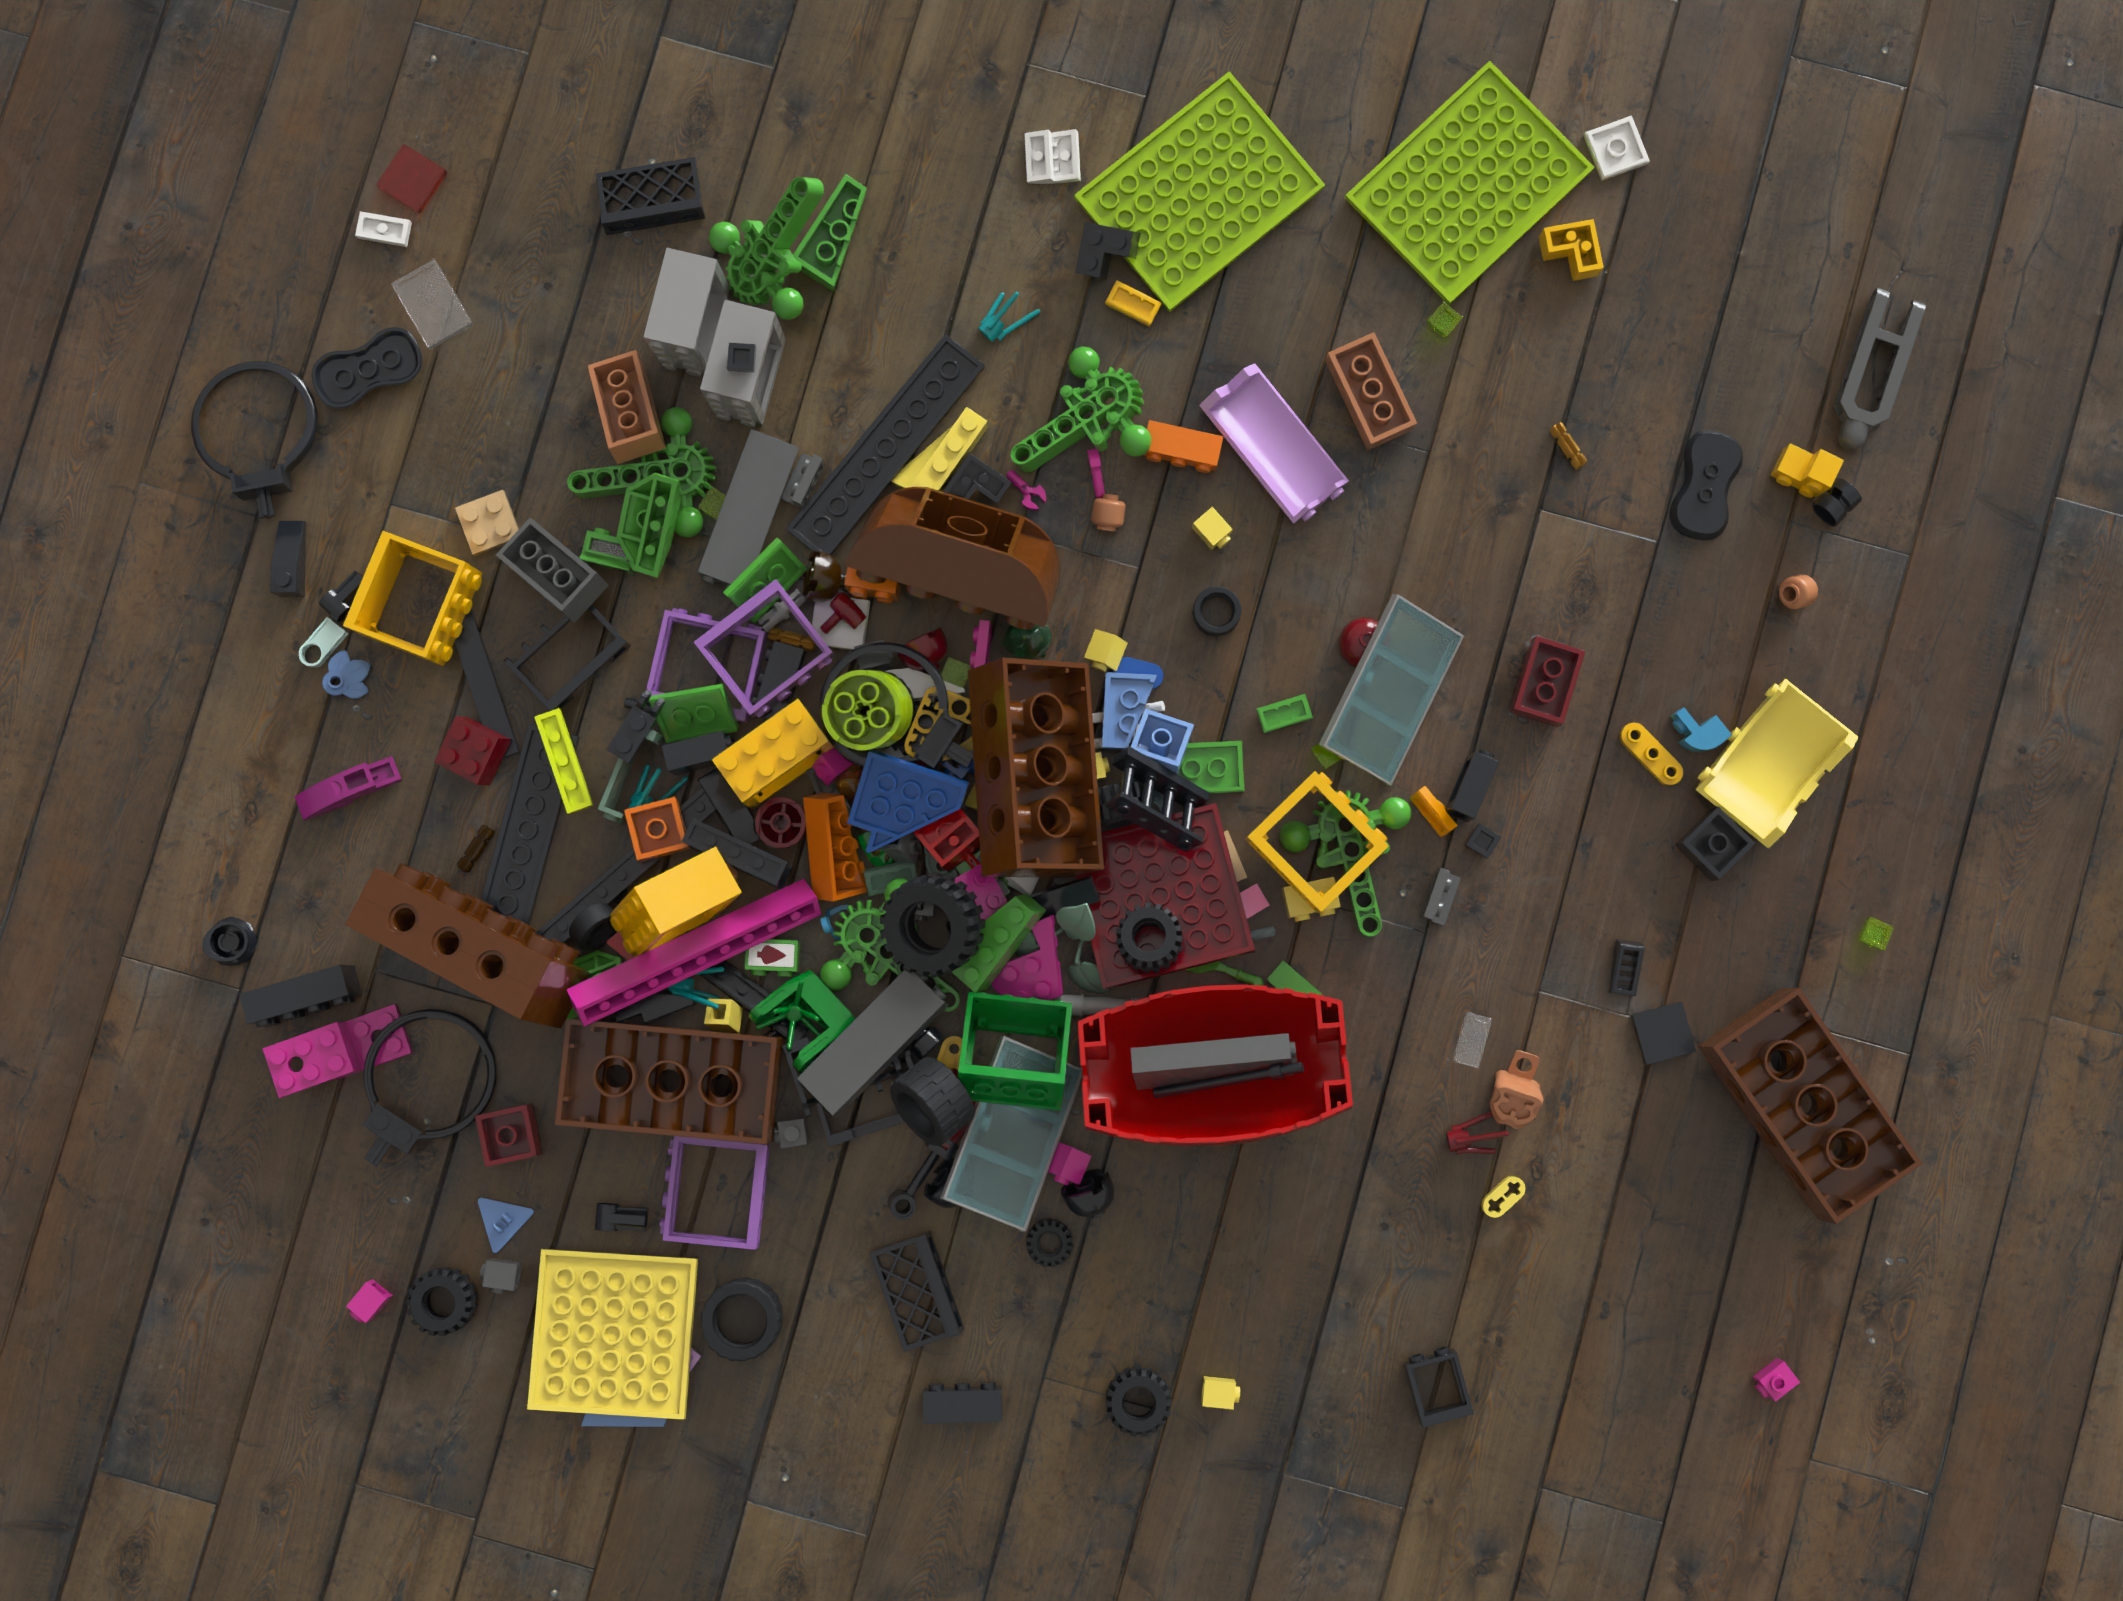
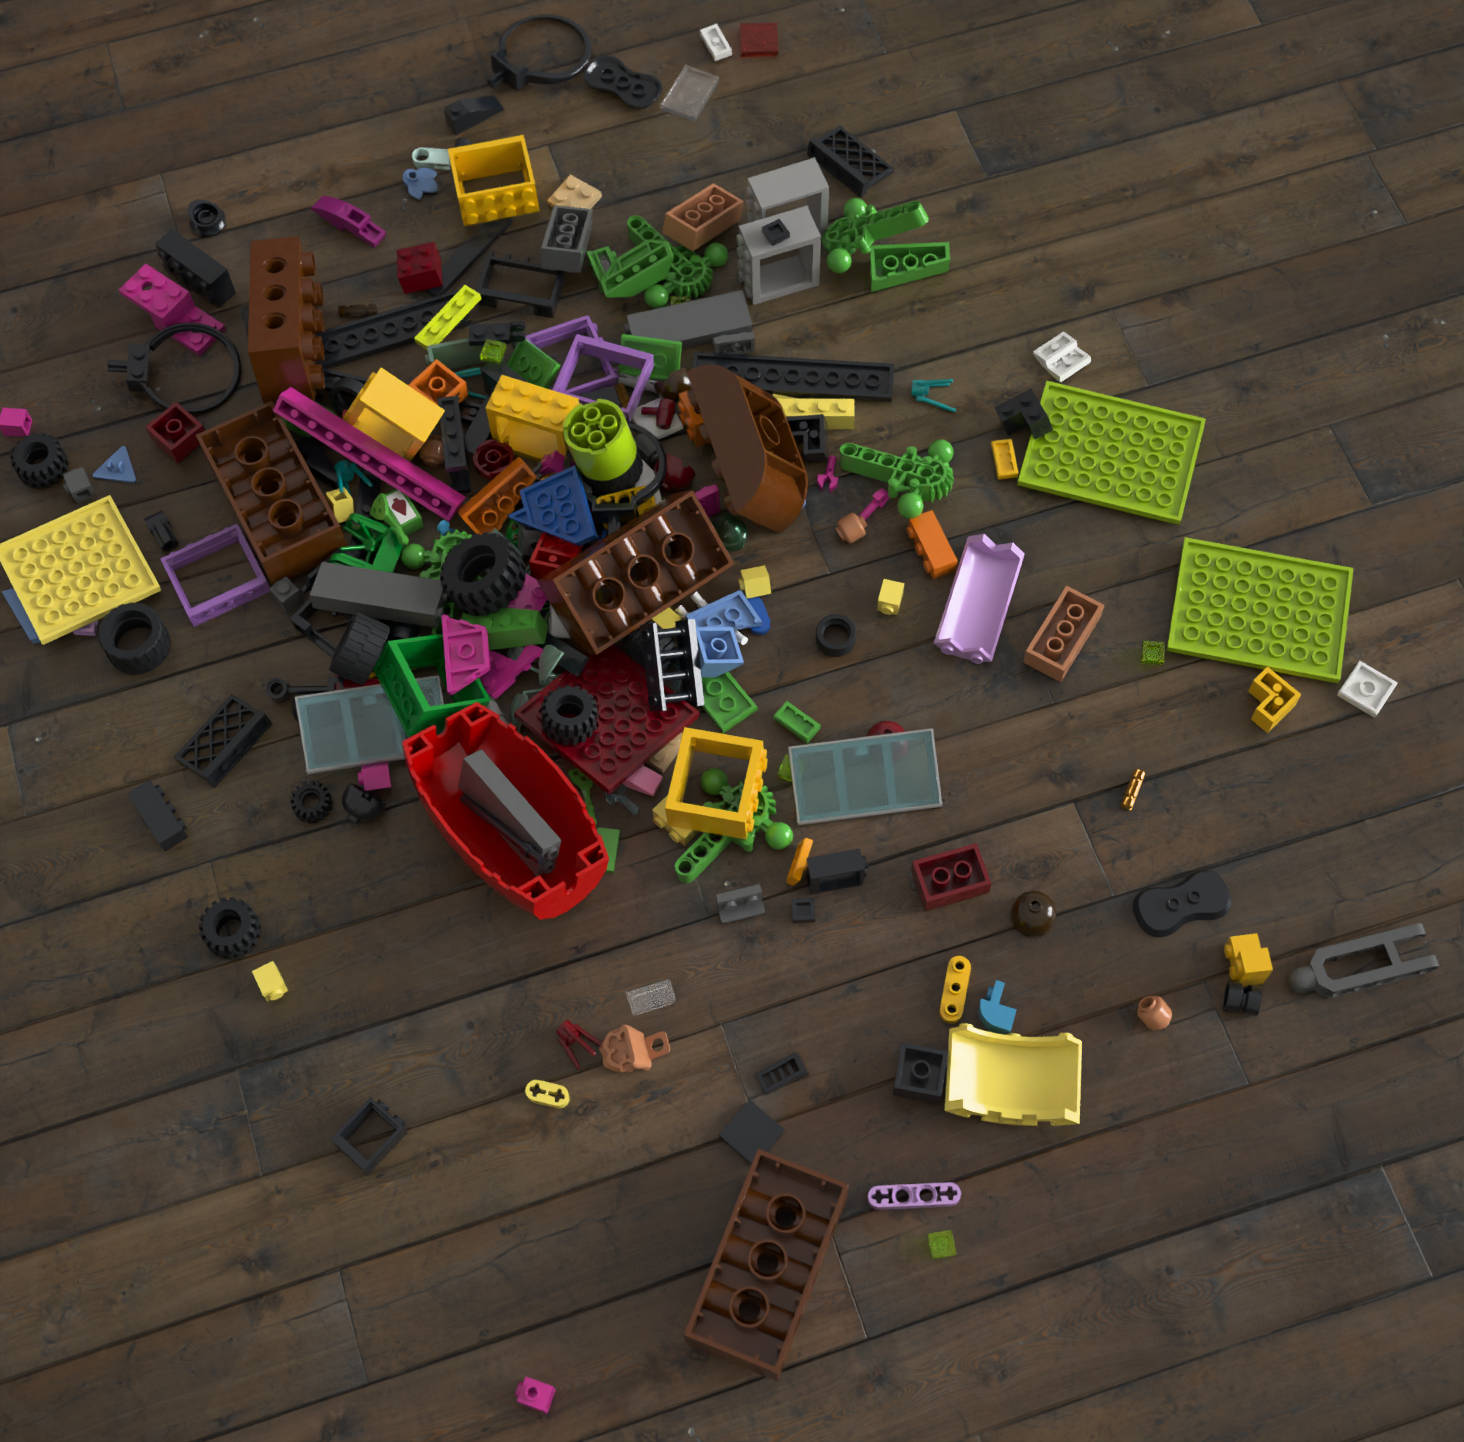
camera: 60 degrees right, 20 degrees down
(659, 745) = (493, 351): none -> clear neon green plate
(761, 977) = (381, 512): none -> bright green piece
(1005, 997) = (465, 652): none -> dark pink wing
(1627, 629) = (1033, 913): none -> dark brown cylinder
(1819, 929) = (914, 1200): none -> lavender beam

